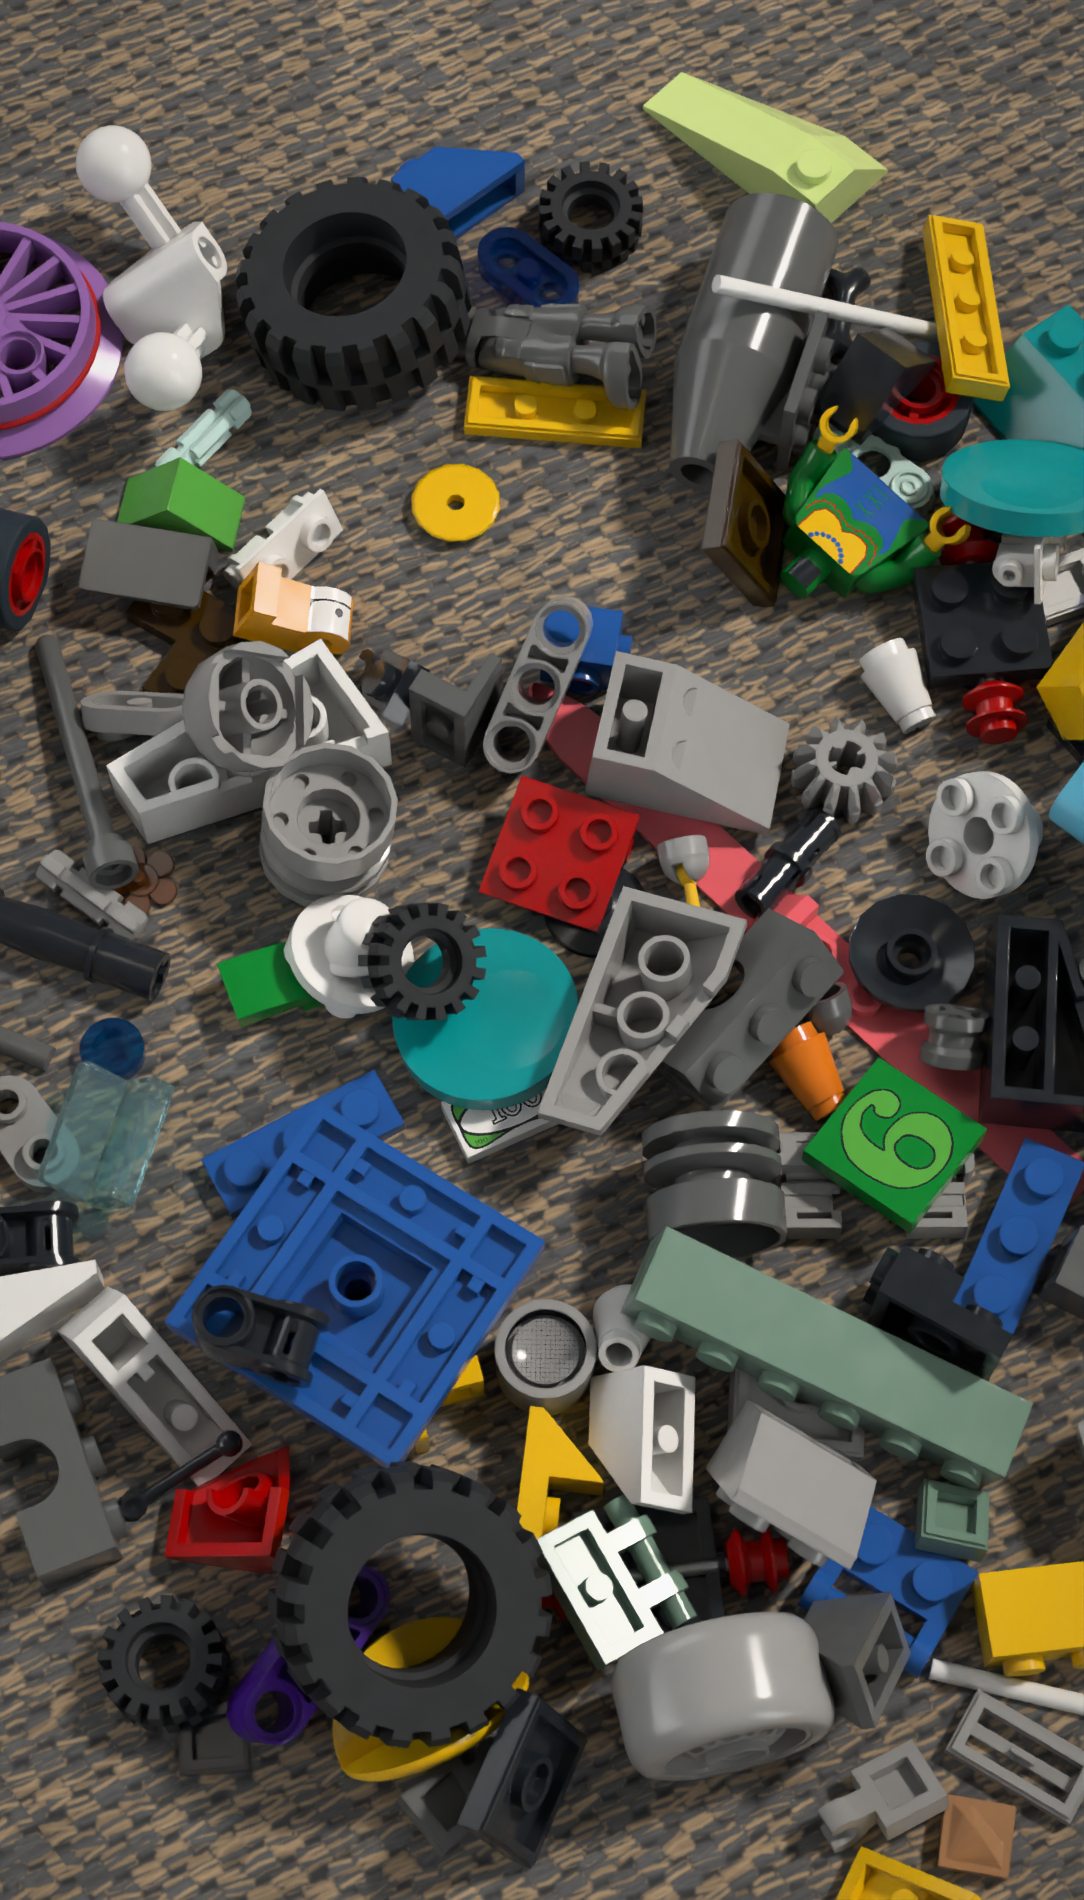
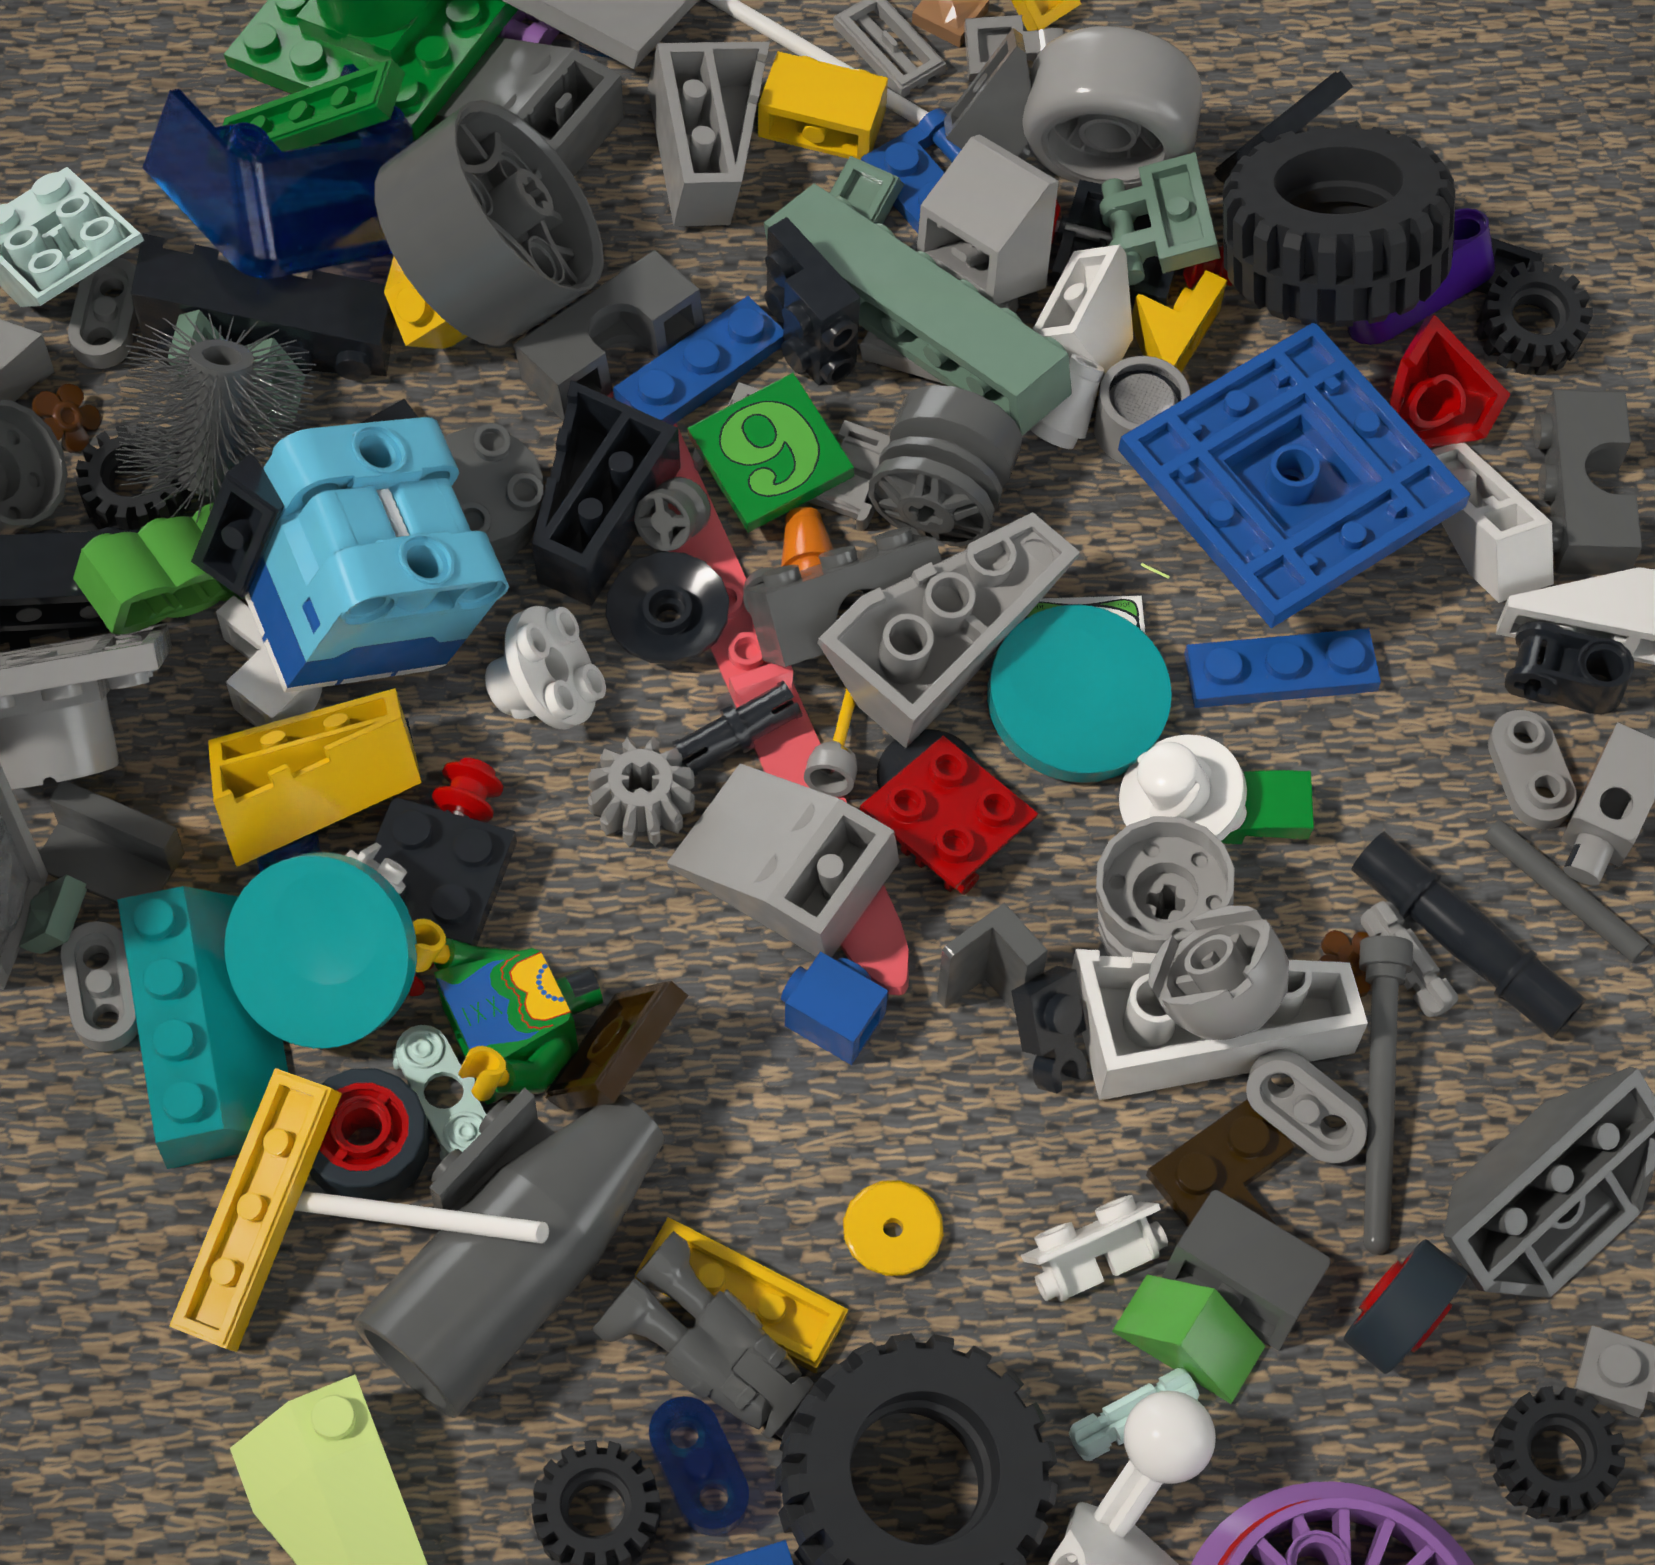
camera: 160 degrees left, 5 degrees down
(105, 1137) = (1459, 722): clear light blue panel -> none
(114, 1046) = (1430, 813): clear blue tile -> none
(135, 1501) = (1518, 448): black hinge -> none
(264, 1336) = (1397, 432): black piece -> none
(291, 612) = (1117, 1150): light orange leg -> none
(458, 956) = (1130, 716): black tyre -> none
(519, 708) = (898, 951): light grey beam -> none
(844, 288) = (398, 1254): black piece -> none
(872, 381) = (402, 1134): black slope -> none
(898, 684) = (543, 858): white cone -> none

